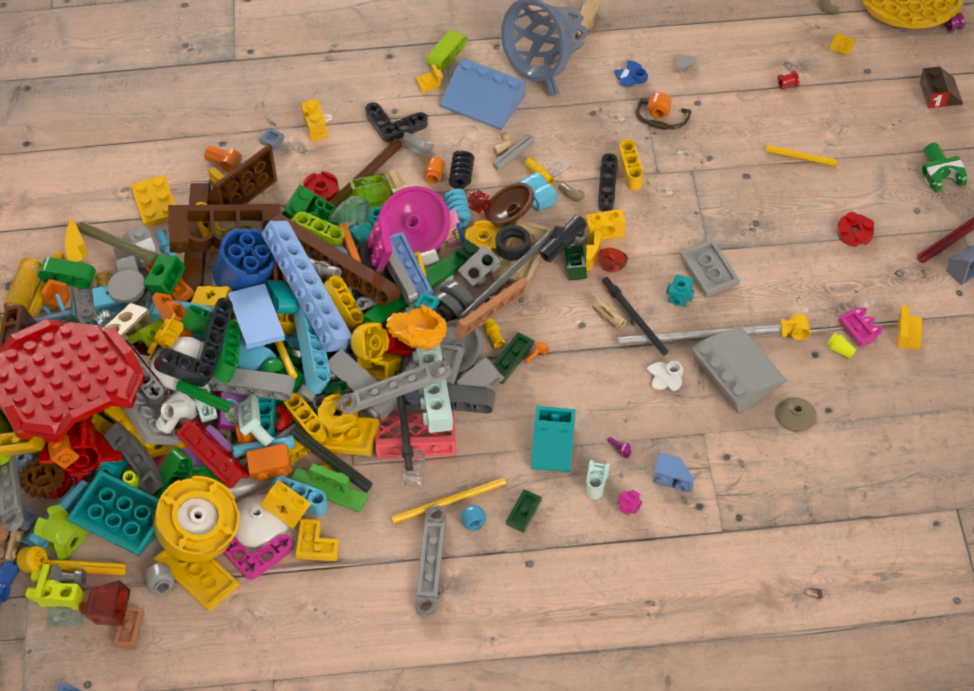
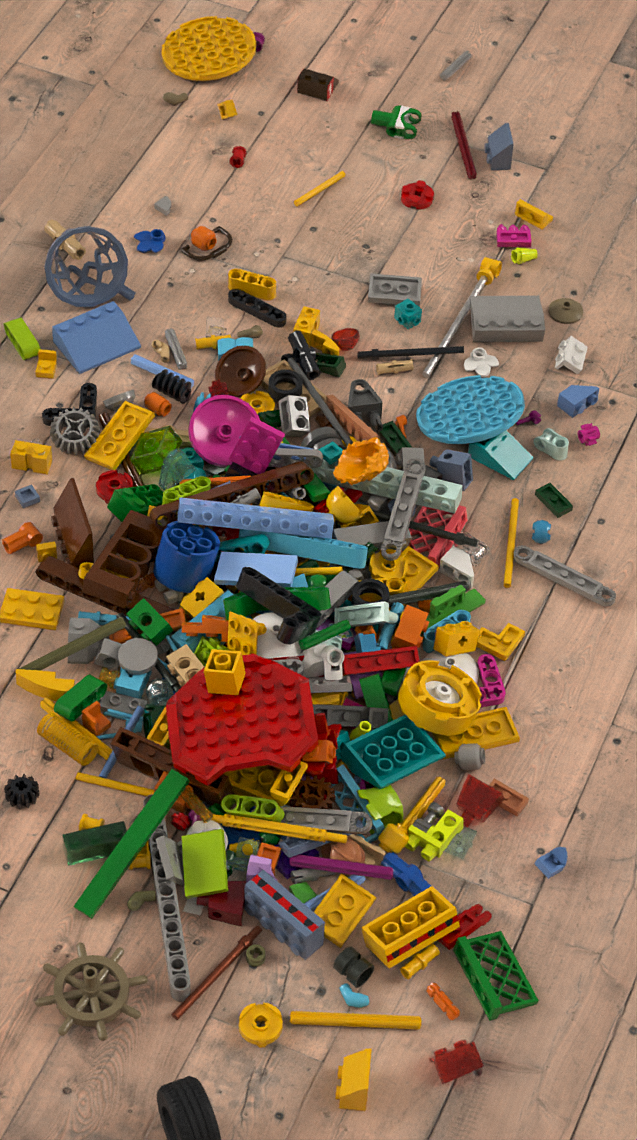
camera: 65 degrees left, 5 degrees down
(90, 337) = (224, 672): none -> yellow head
(222, 435) = (365, 643): none -> dark azure panel
(279, 425) = (369, 586): none -> black tyre
(363, 135) = (73, 436): none -> light grey gear
(375, 161) = (119, 435): none -> yellow tile
(386, 470) = (457, 566): none -> white slope
(479, 156) = (155, 368): none -> light blue axle
(502, 405) = (455, 467): none -> sand blue torso
(525, 309) = (366, 404): none -> dark grey piece
(583, 391) = (470, 409): none -> medium azure tile
(732, 444) = (571, 355): none -> white bracket

